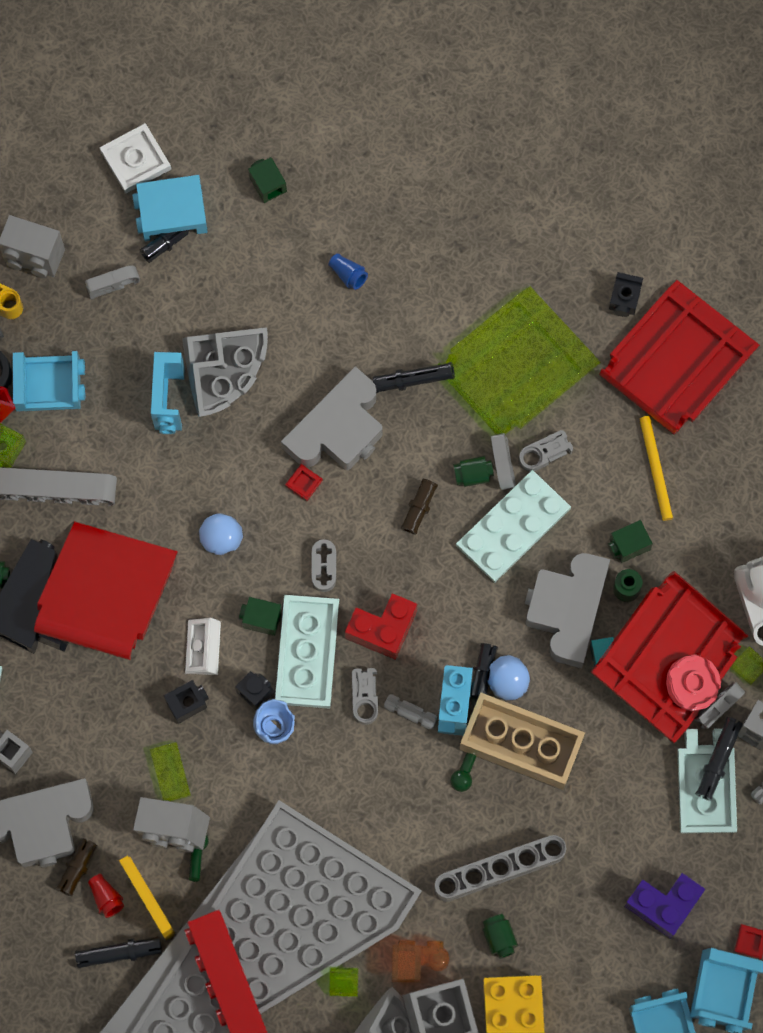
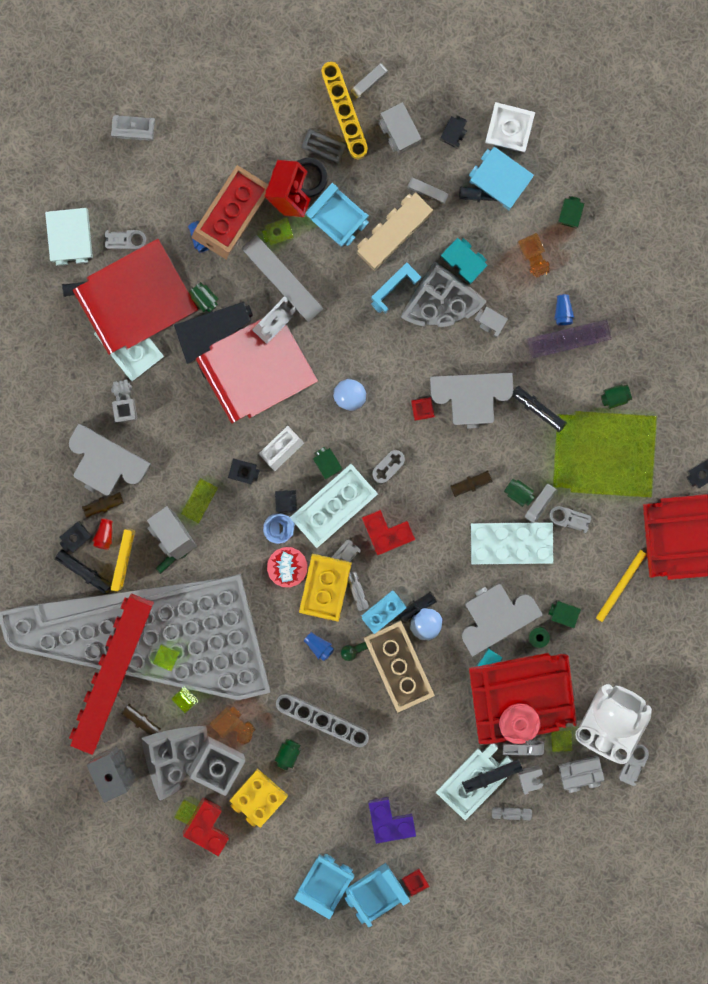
camera: 40 degrees right, 15 degrees up
(79, 530) = (274, 320): none -> light grey hinge
(84, 936) = (82, 537): none -> black brick
(86, 208) = (454, 131): none -> black brick
(116, 342) = (395, 231): none -> tan brick
(209, 309) = (465, 259): none -> teal brick
(263, 244) = (531, 250): none -> clear orange brick
(284, 954) = (166, 657): none -> clear neon green tile
(288, 341) = (491, 321): none -> light grey brick
(319, 754) = (287, 567): none -> tile
(375, 736) = (325, 587): none -> yellow tile
(378, 290) = (568, 339): none -> clear purple brick
(426, 800) = (320, 647): none -> blue cone
(474, 300) = (616, 396): none -> dark green brick

